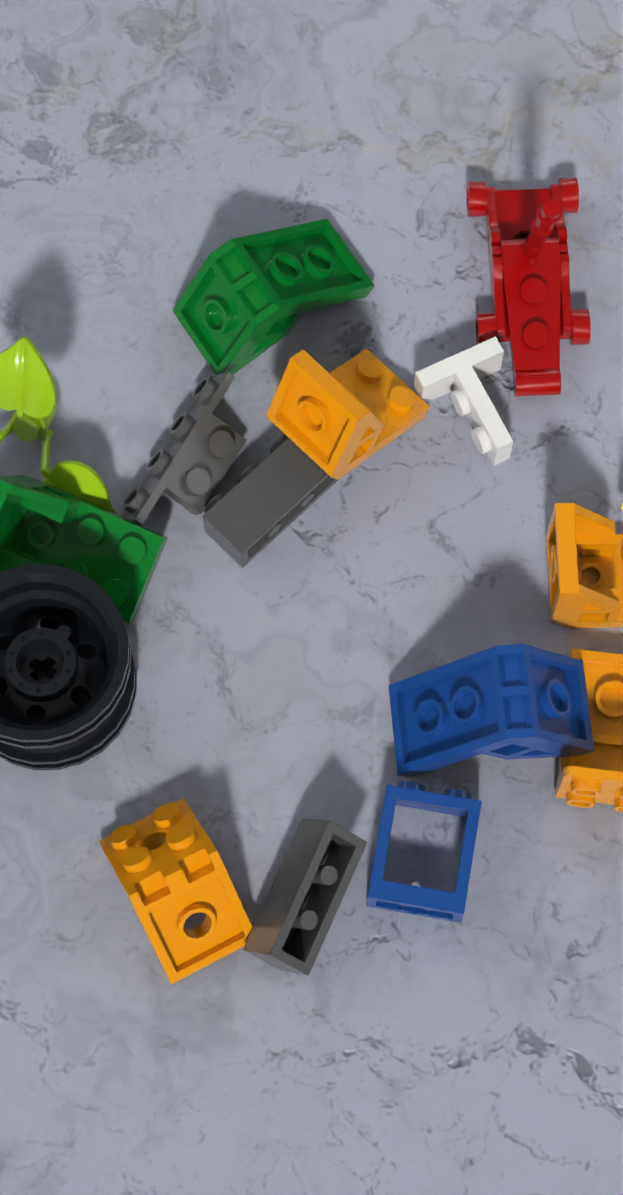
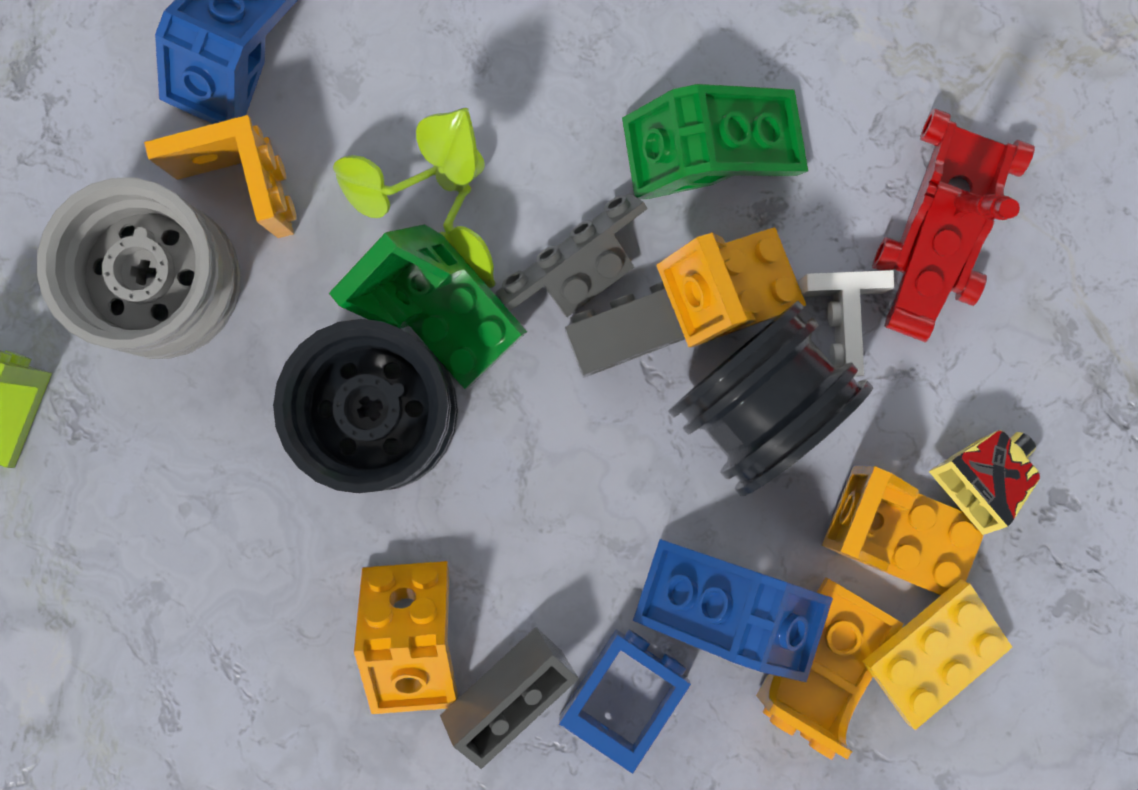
camera: 25 degrees right, 15 degrees up
(427, 490) = (772, 401): none -> black wheel

